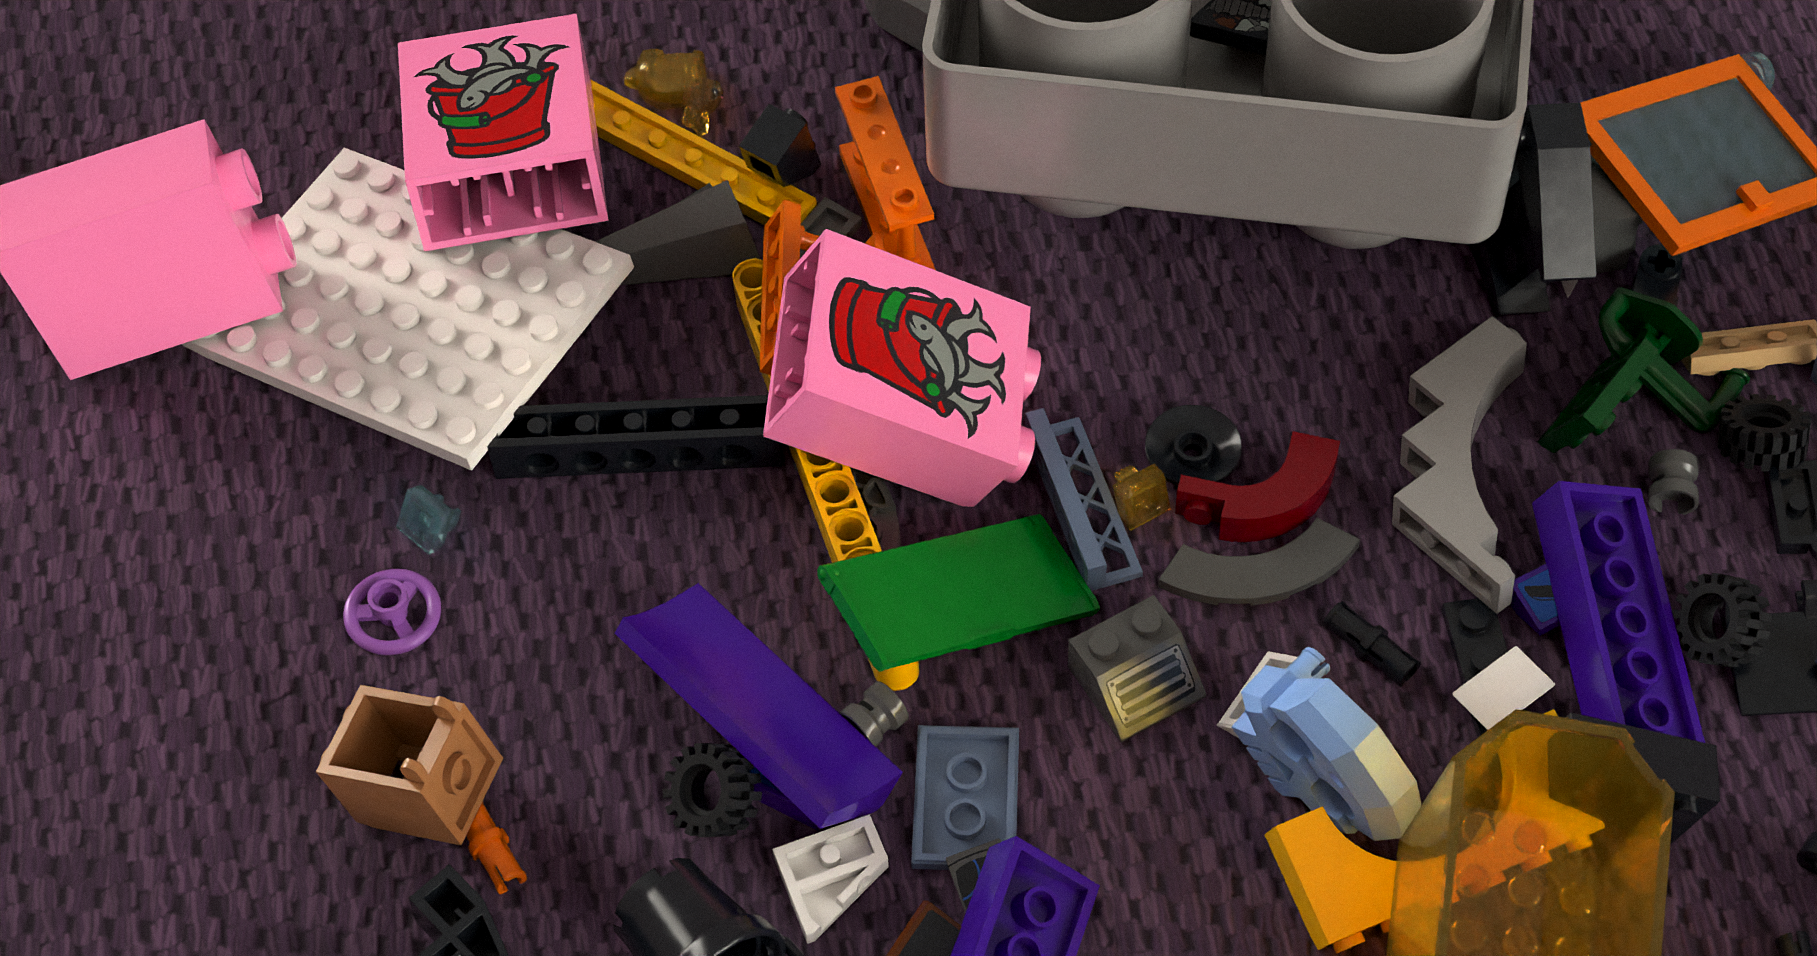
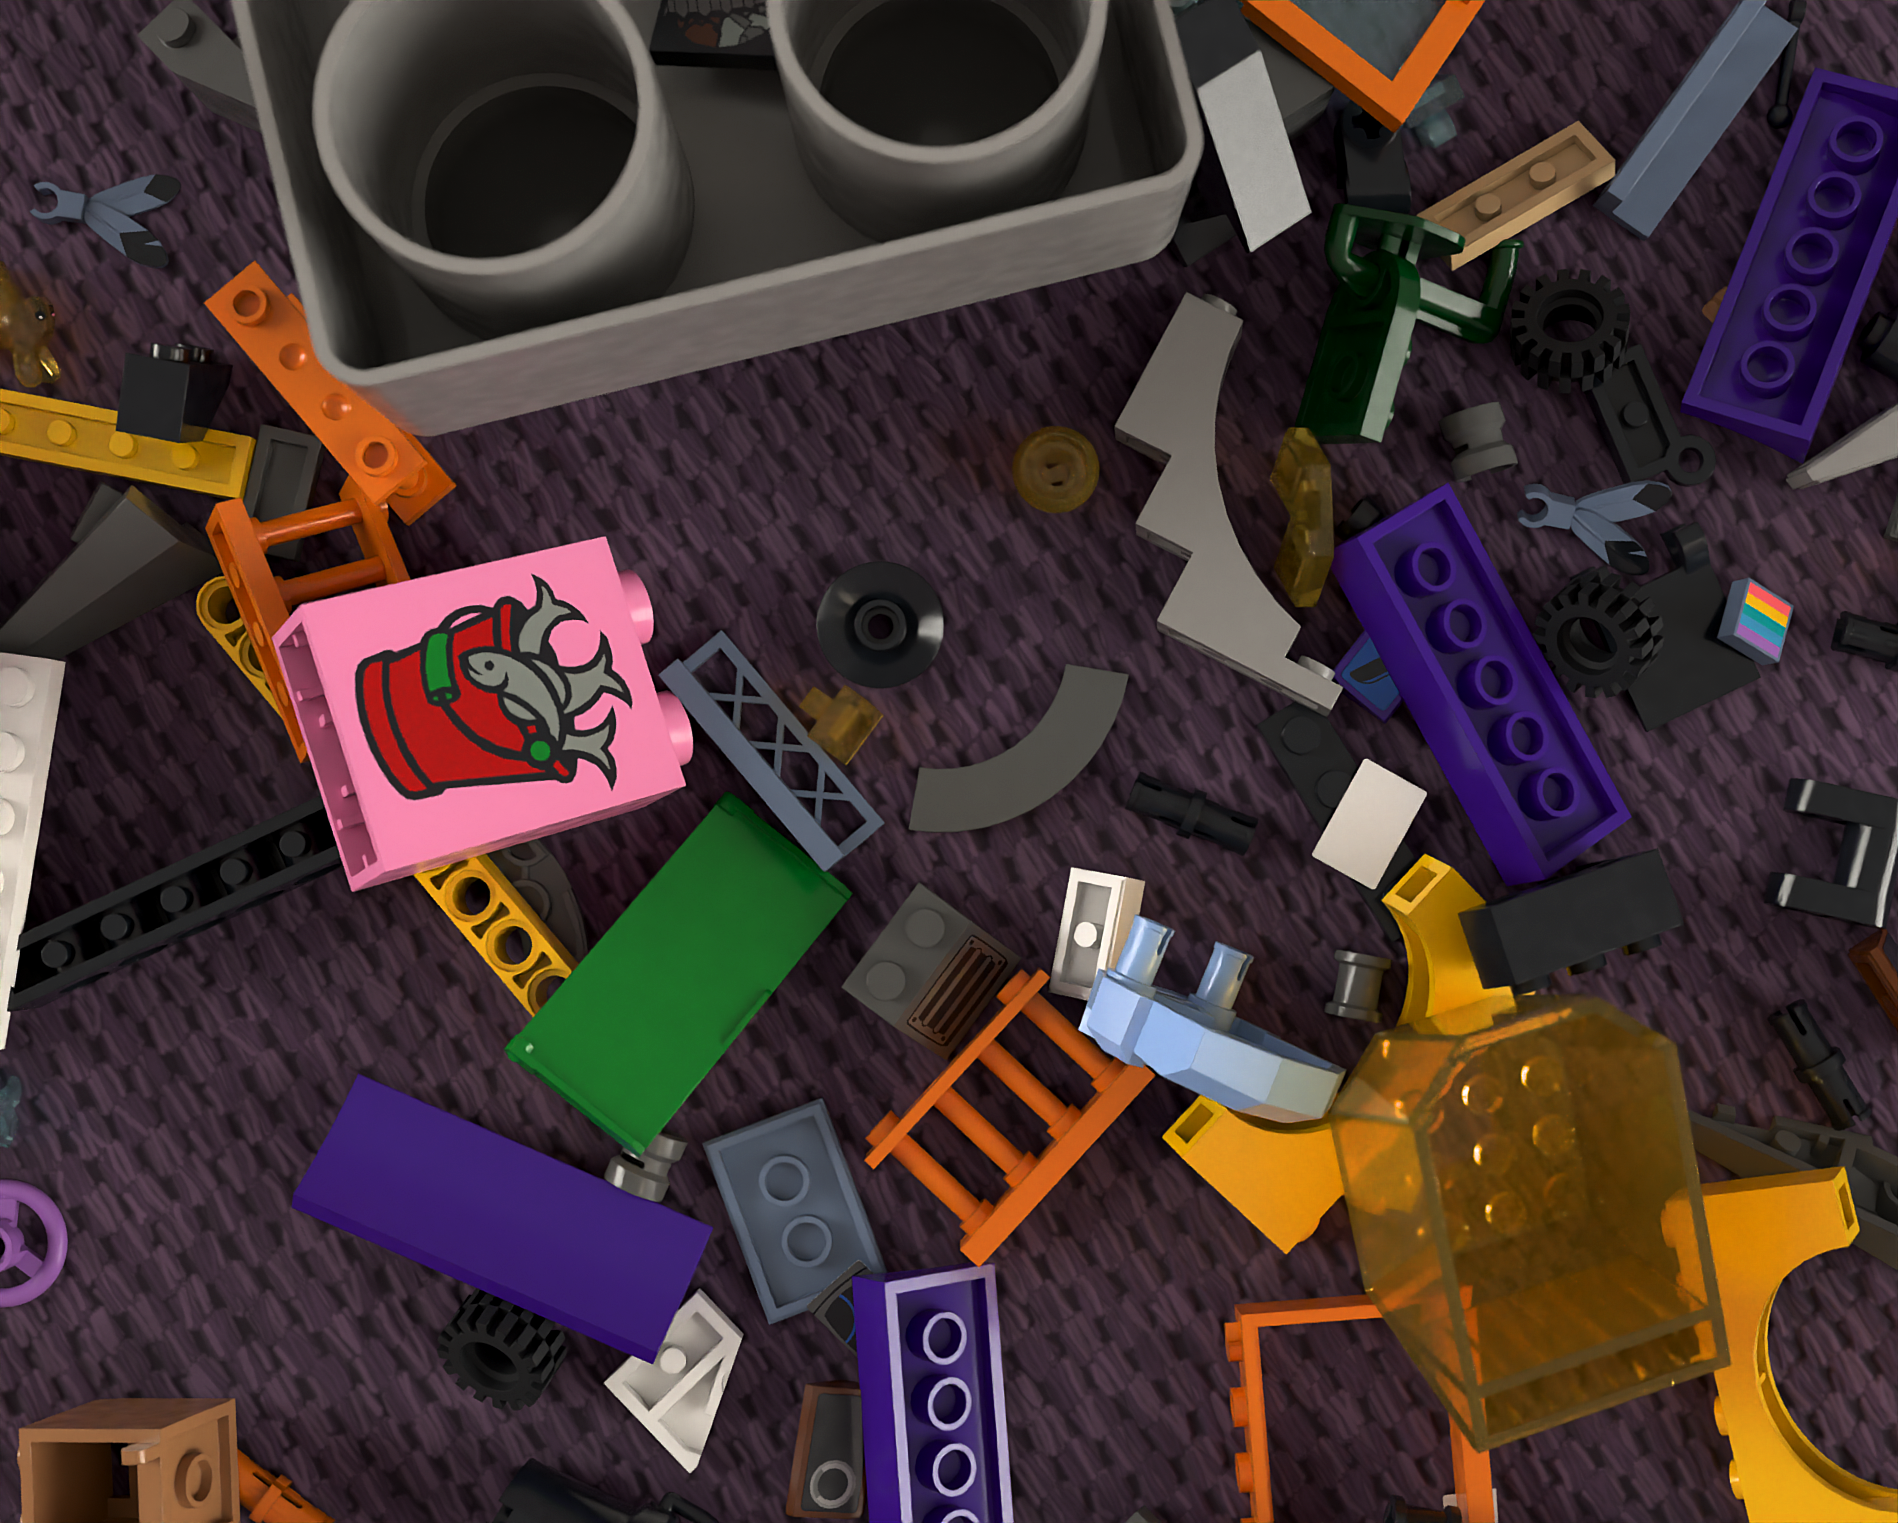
camera: 20 degrees left, 30 degrees up
(786, 60) = (110, 213): none -> sand blue piece
(1155, 831) = (1027, 1175): none -> orange fence
(1269, 506) = (1031, 636): dark red arch -> none
(1357, 394) = (1075, 467): none -> clear yellow cone
(1531, 468) = (1305, 488): none -> clear yellow tile
(1705, 276) = (1429, 115): none -> clear light blue tile
(1748, 557) = (1594, 518): none -> sand blue piece

